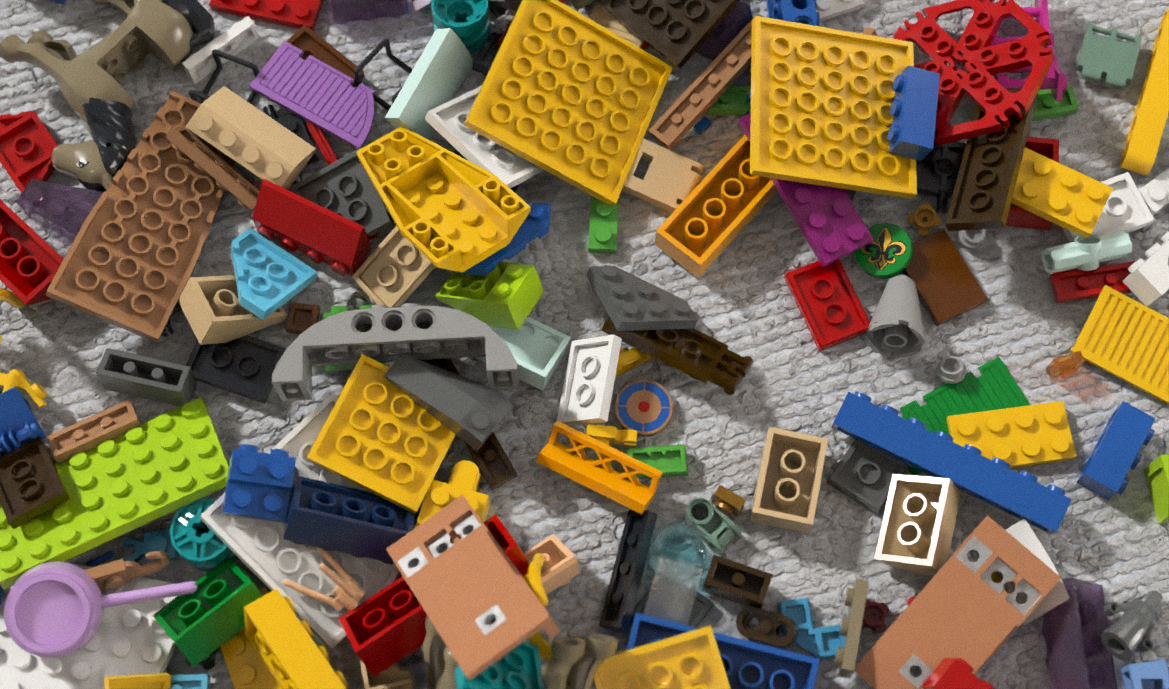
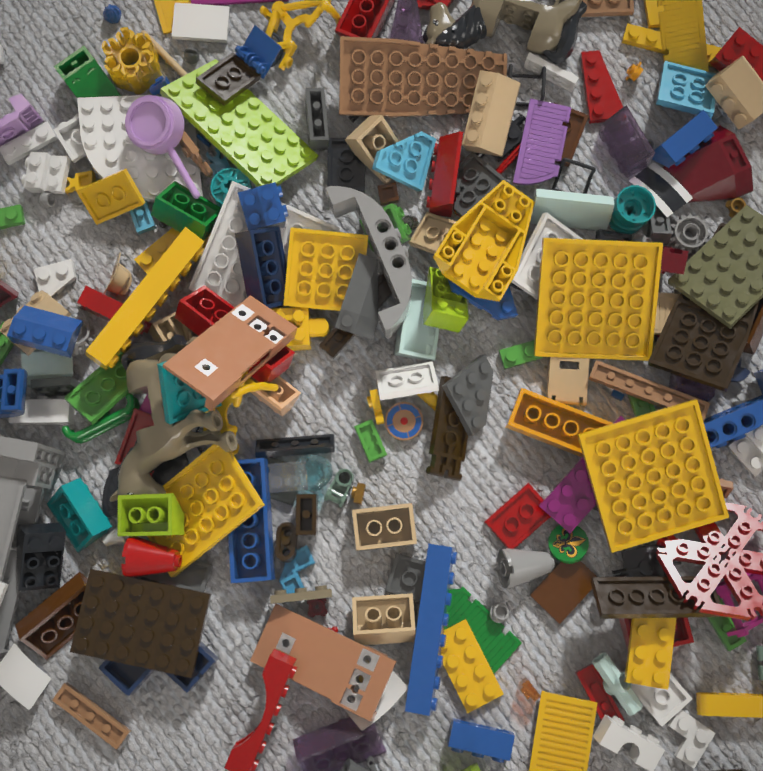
camera: 75 degrees right, 10 degrees up
(93, 430) = (276, 103): medium nougat plate -> none
(212, 163) = (464, 100): medium nougat plate -> none
(347, 589) = (221, 283): light nougat plant -> none
(598, 473) = (349, 407): light orange fence -> none
(914, 113) = (670, 532): blue brick -> none
(928, 212) = (608, 565): pearl gold plate -> none

